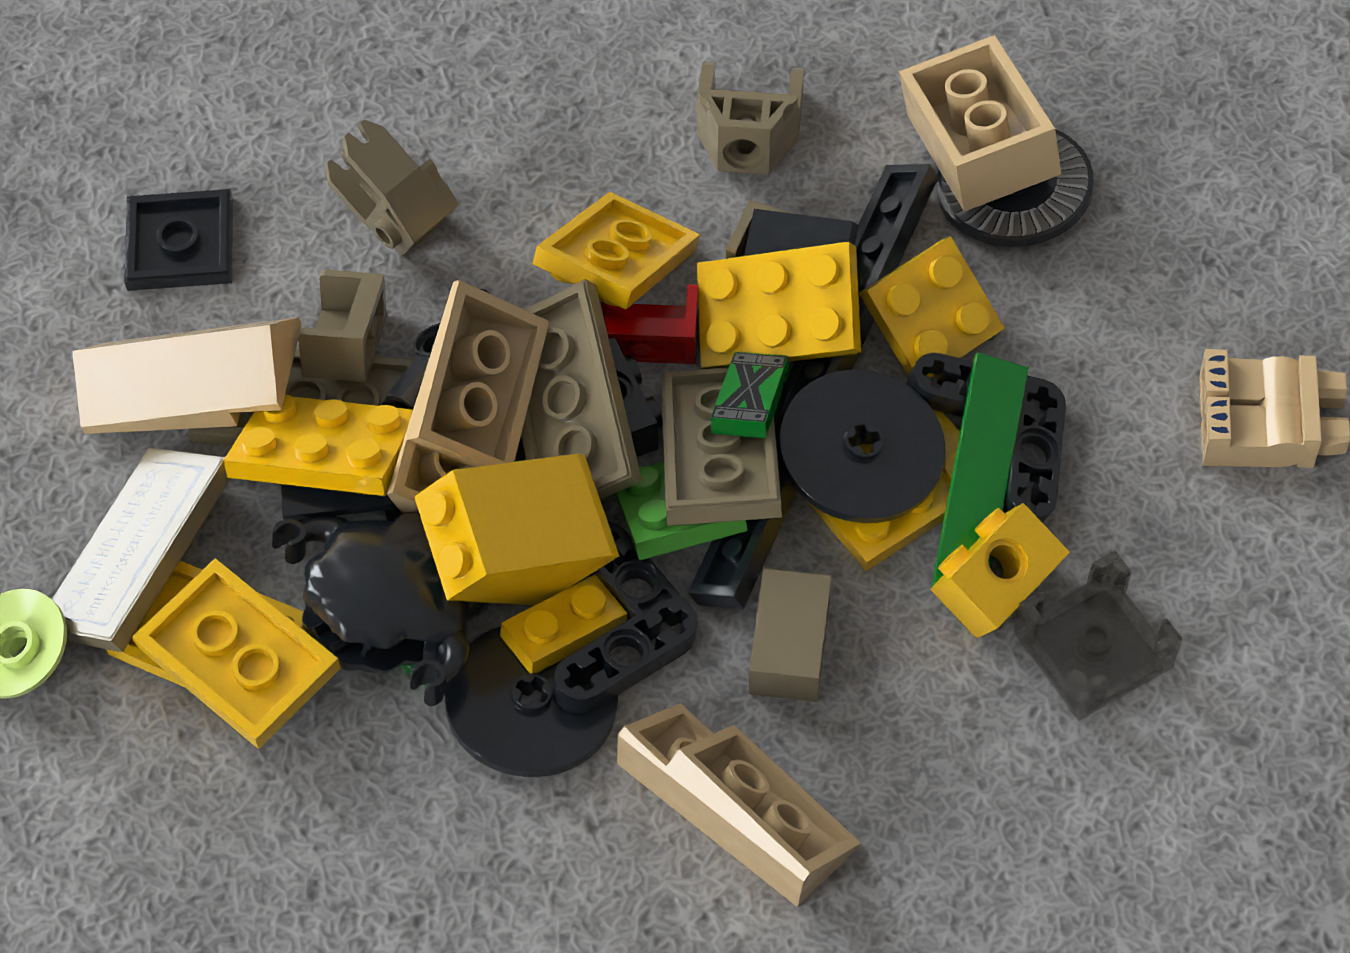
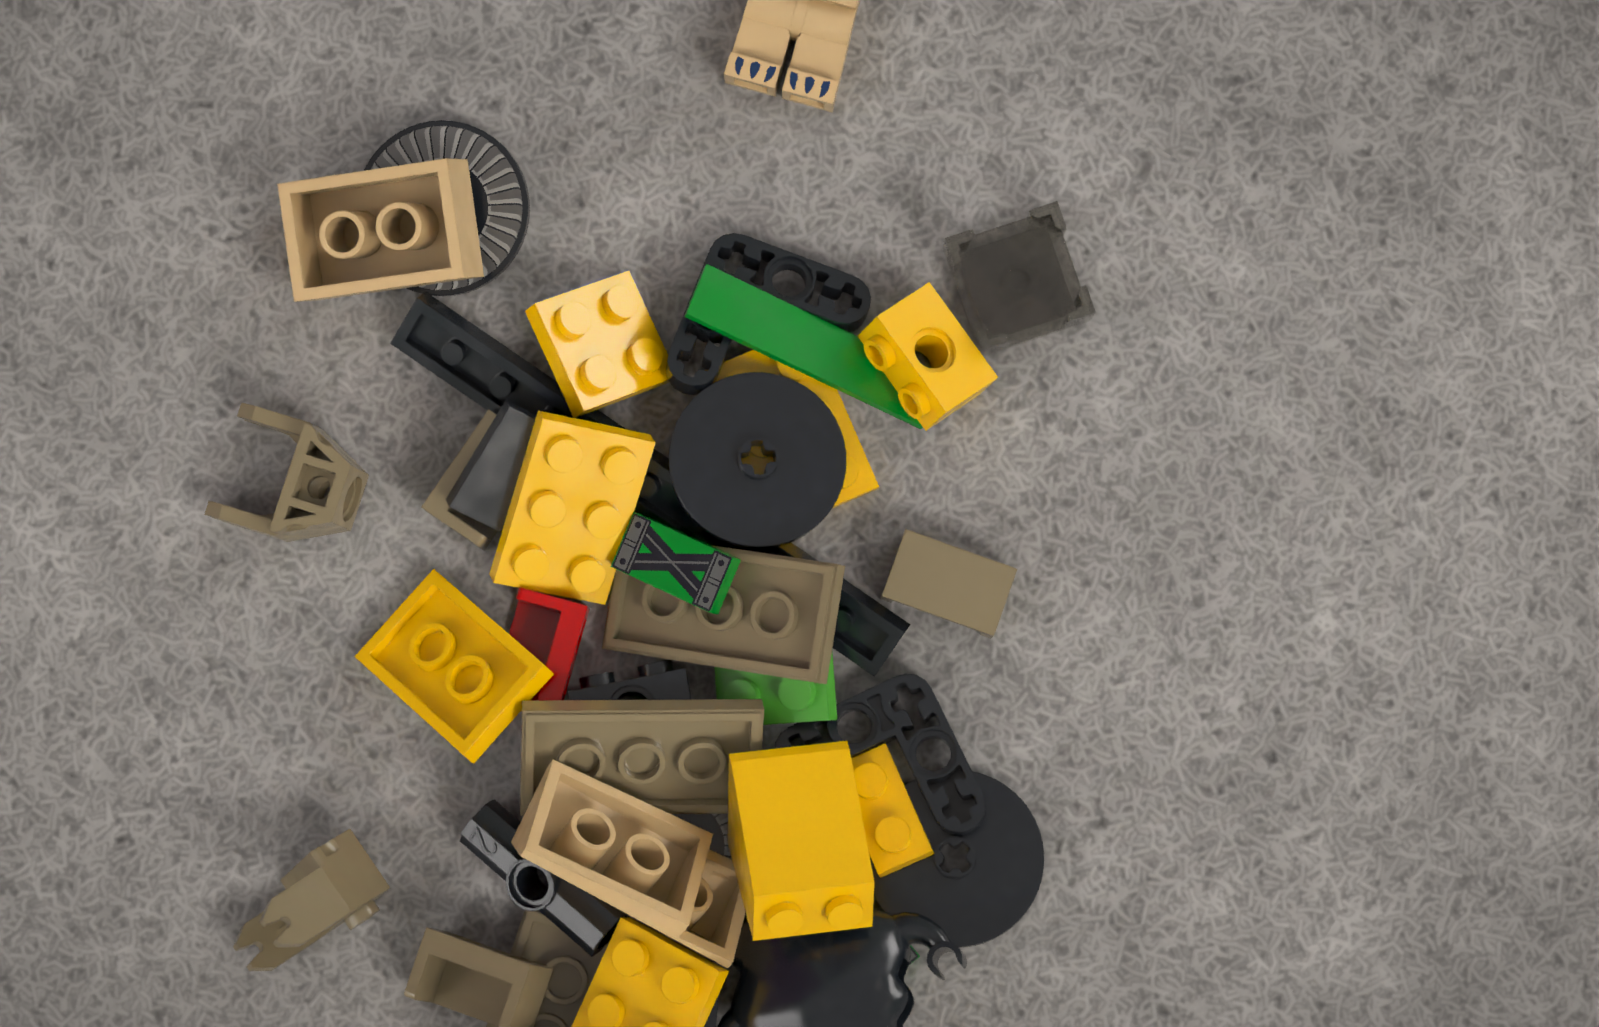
camera: 85 degrees left, 25 degrees up
(737, 799) = (1110, 673): tan slope -> none

